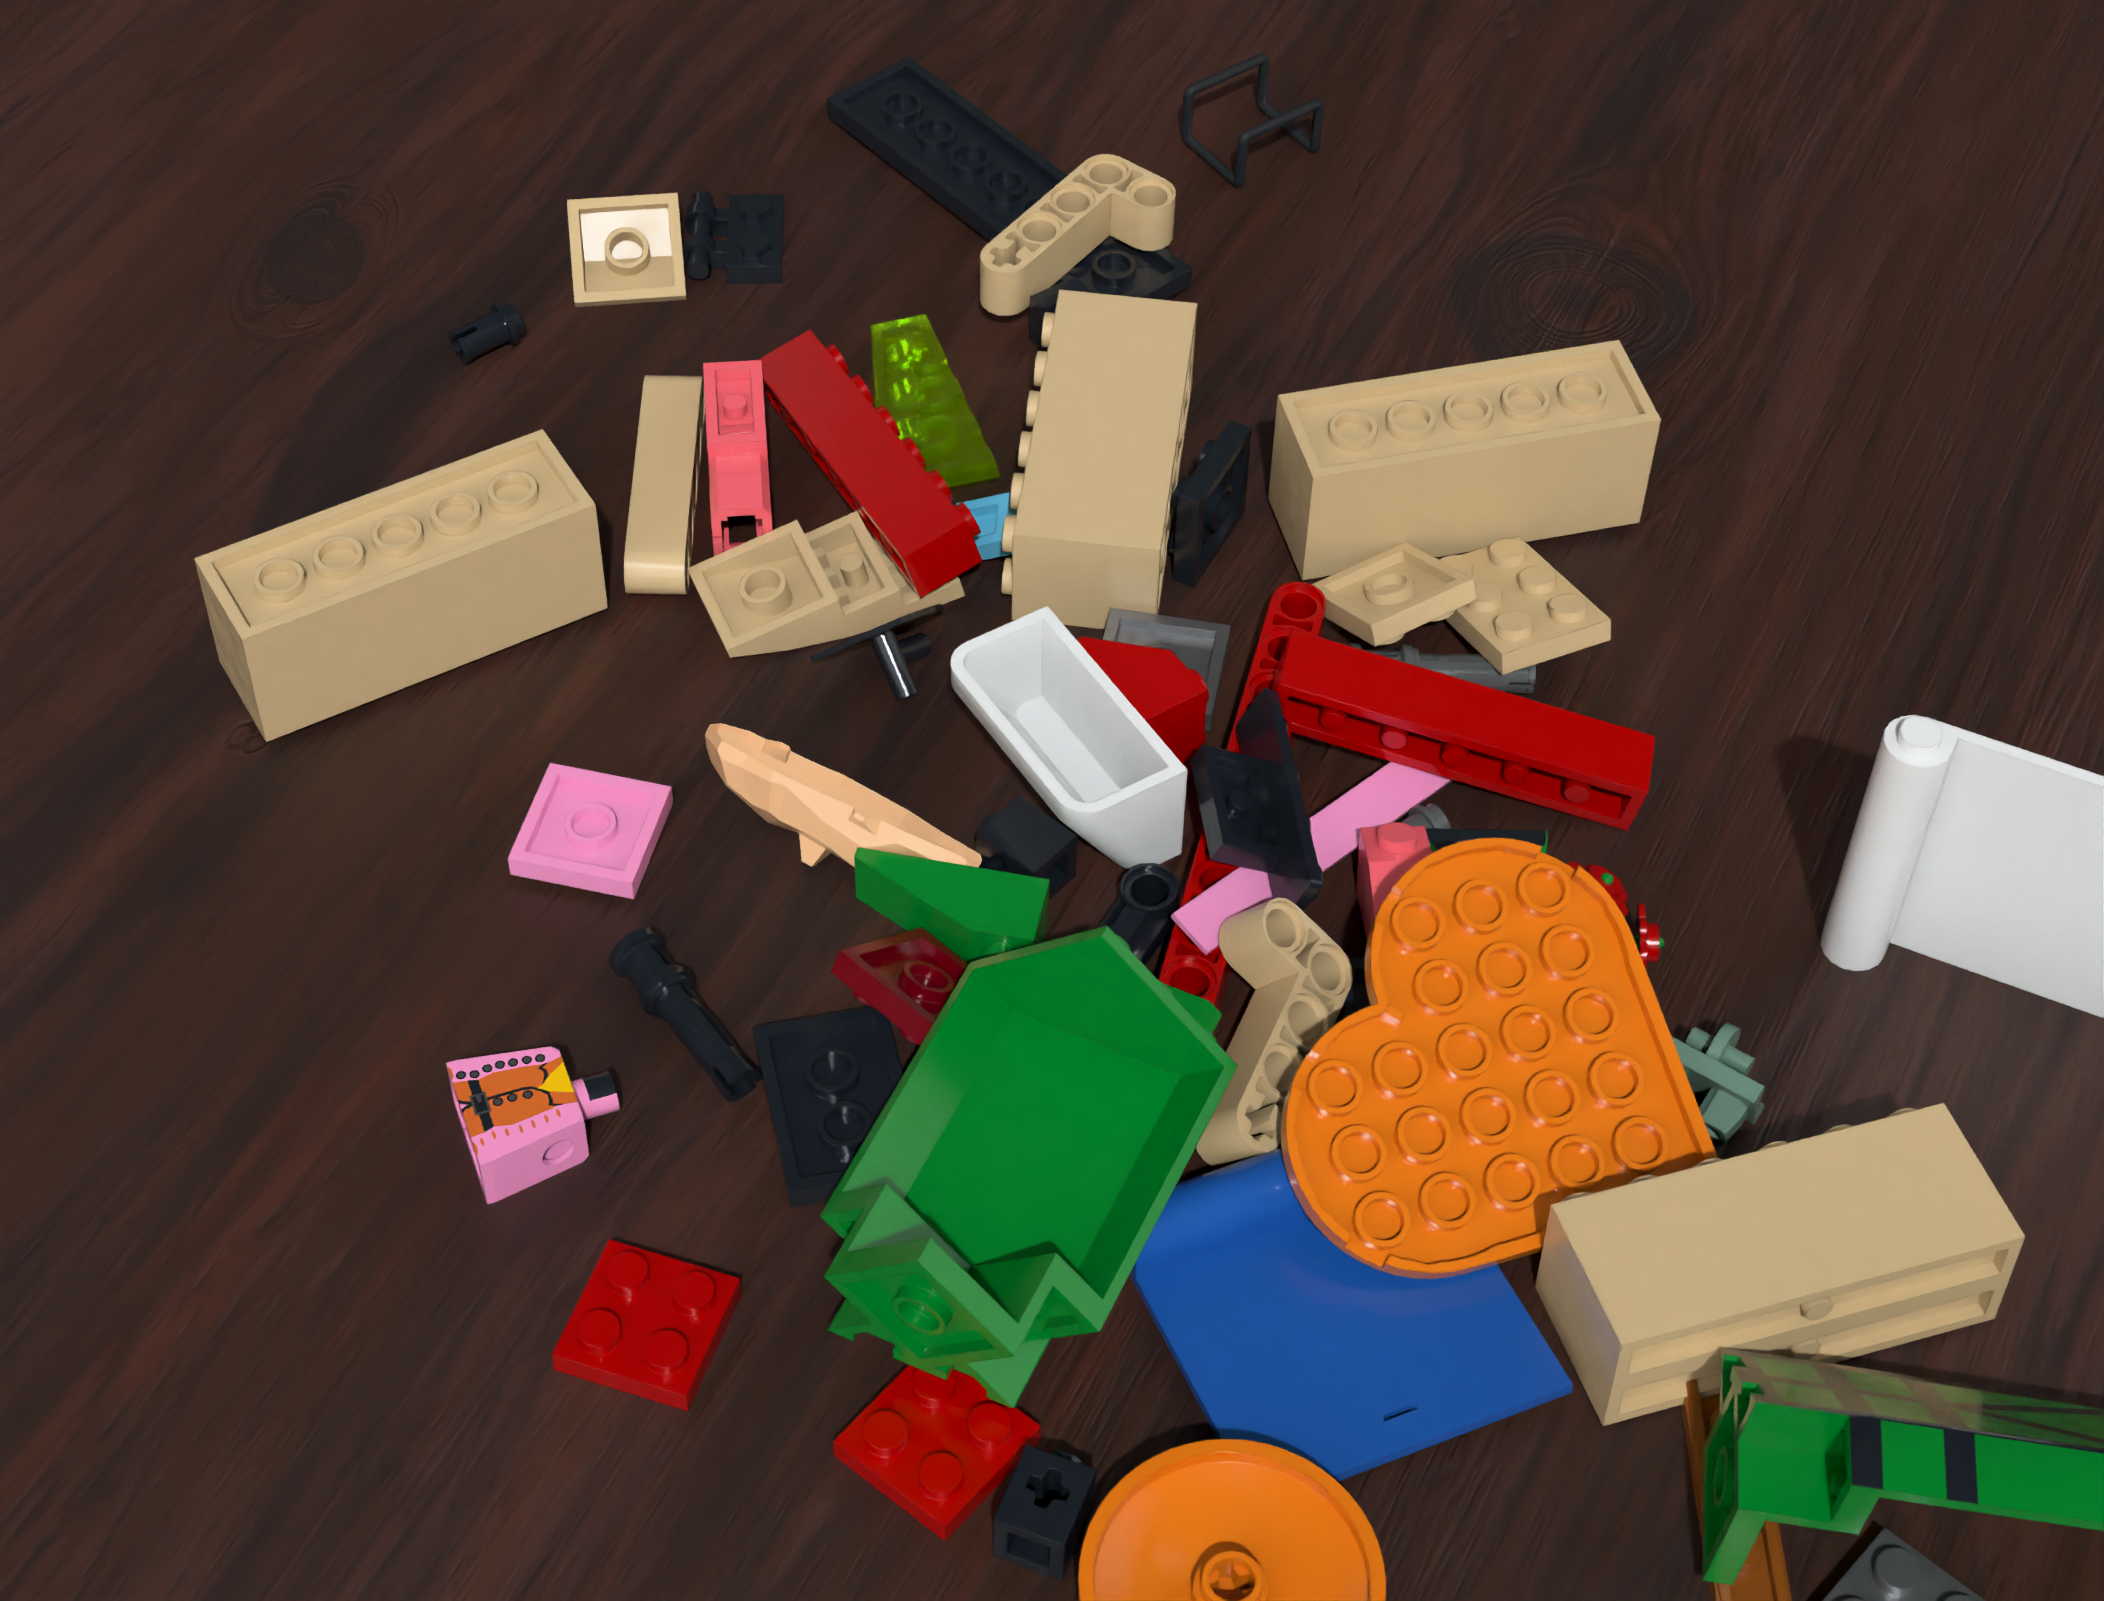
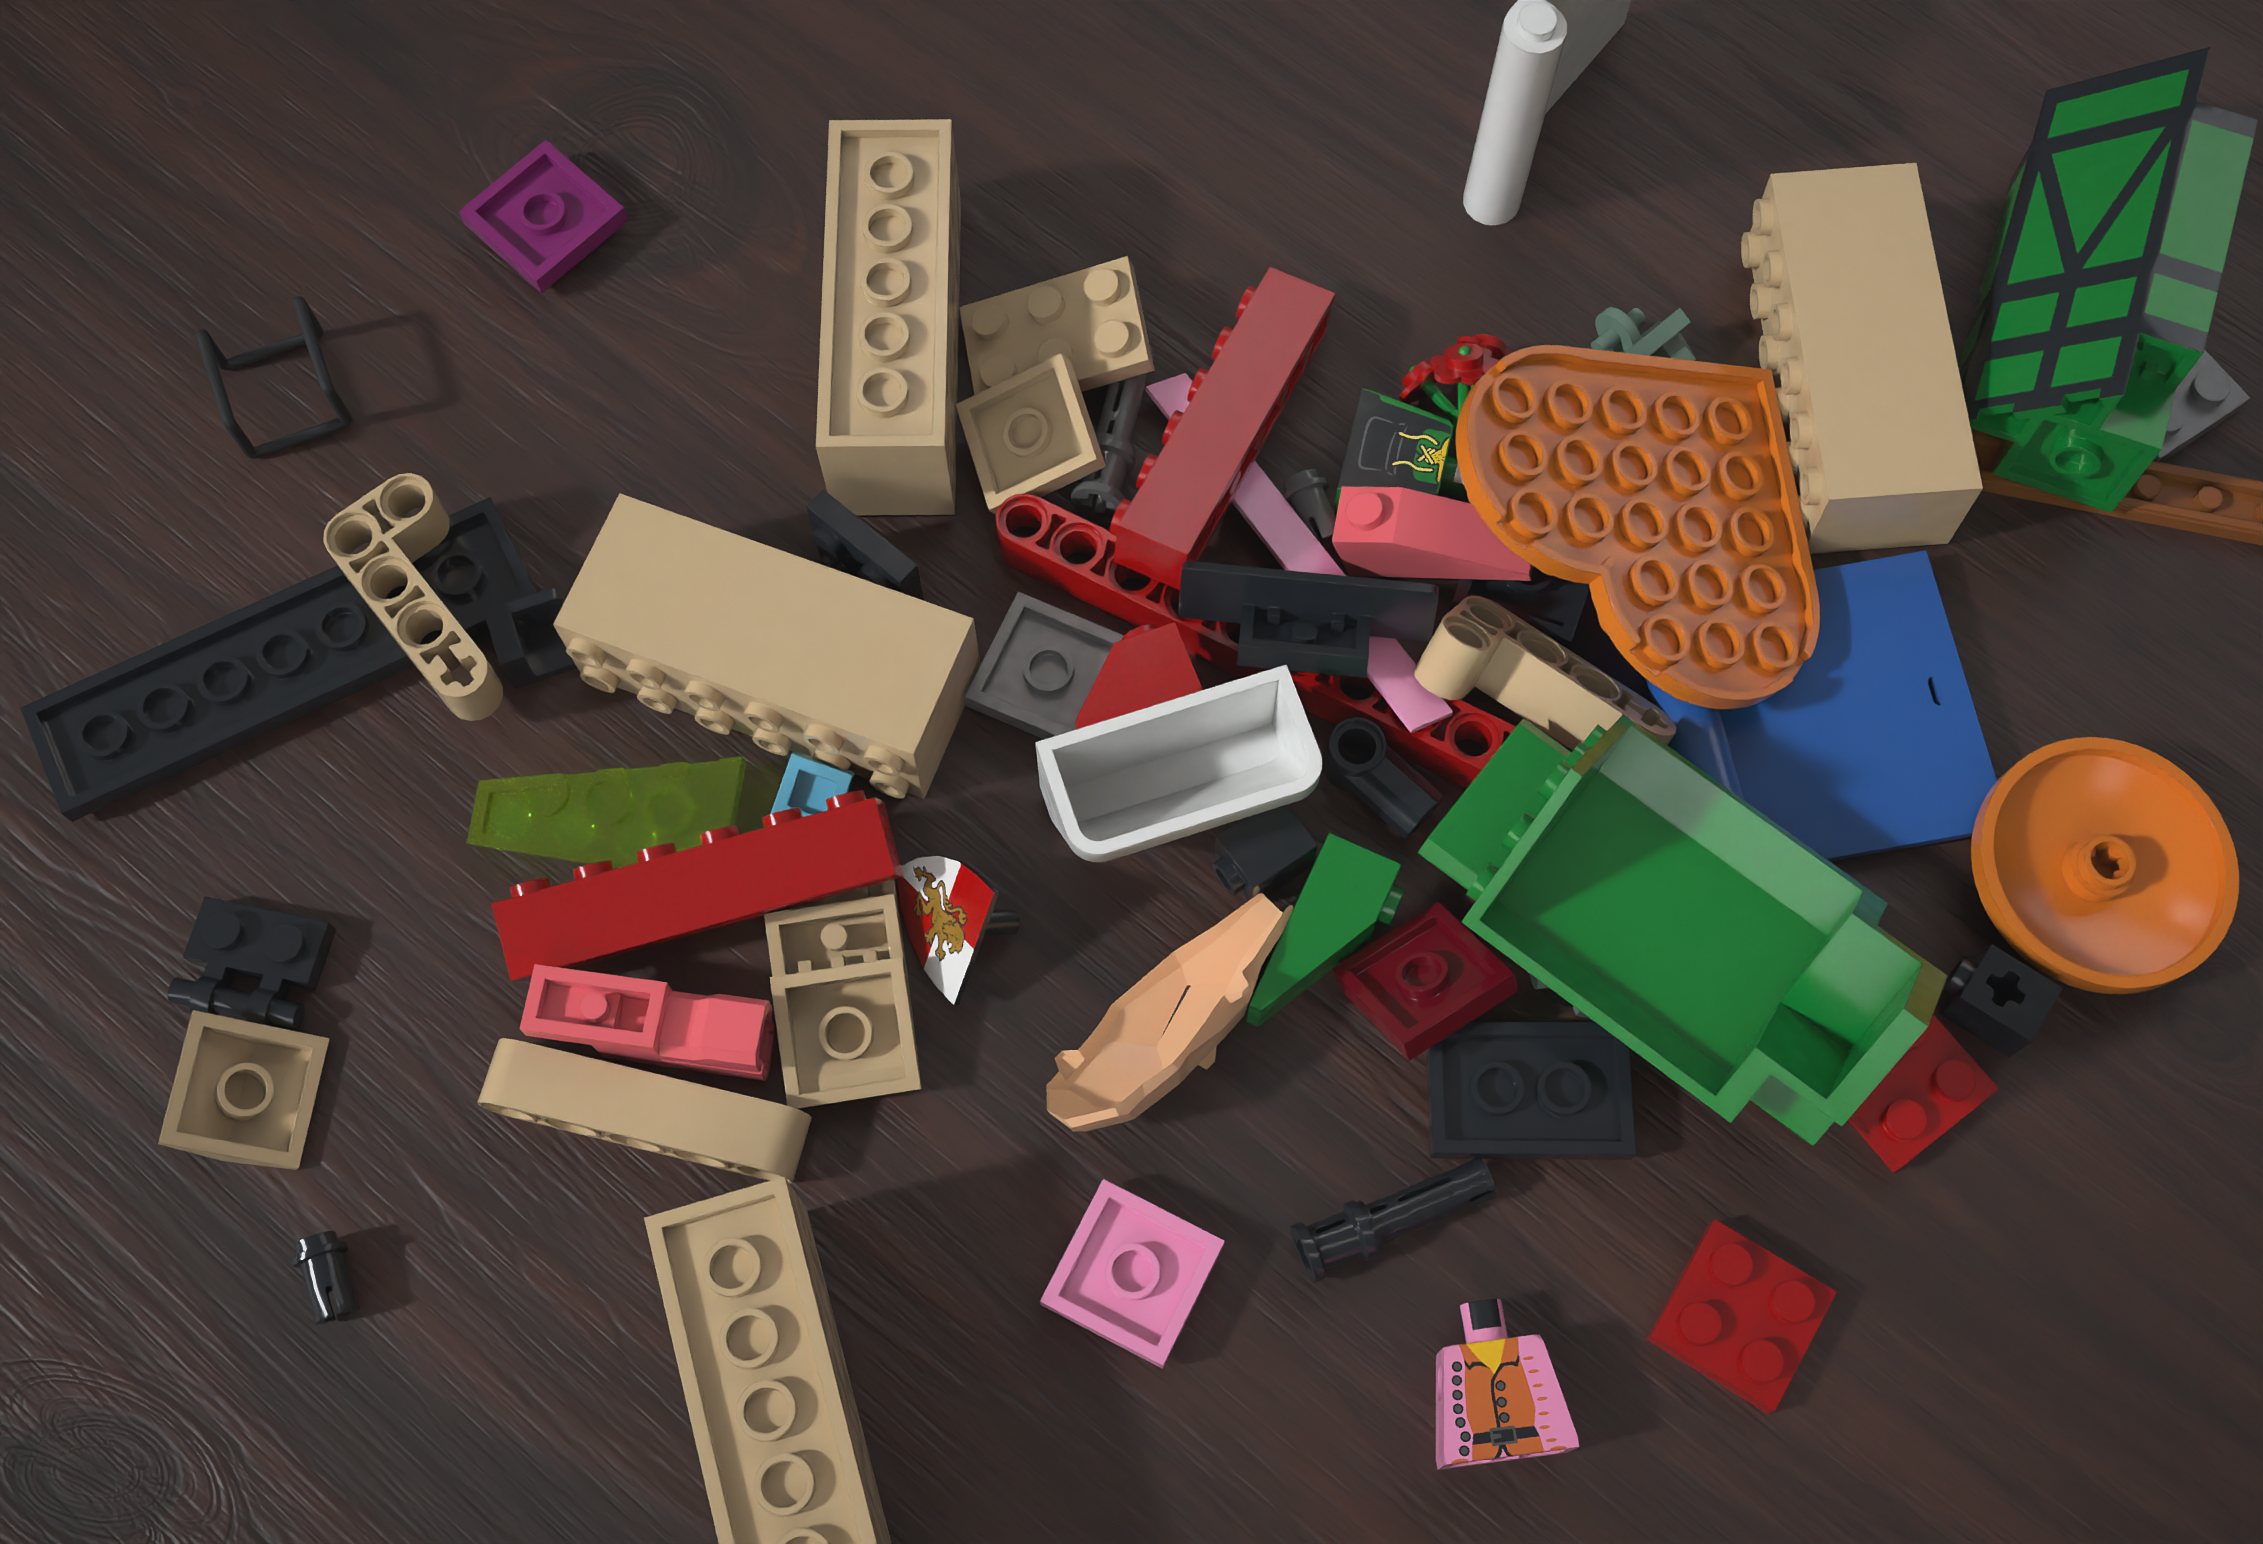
camera: 75 degrees left, 20 degrees up
(1485, 247) = (543, 216): none -> magenta plate

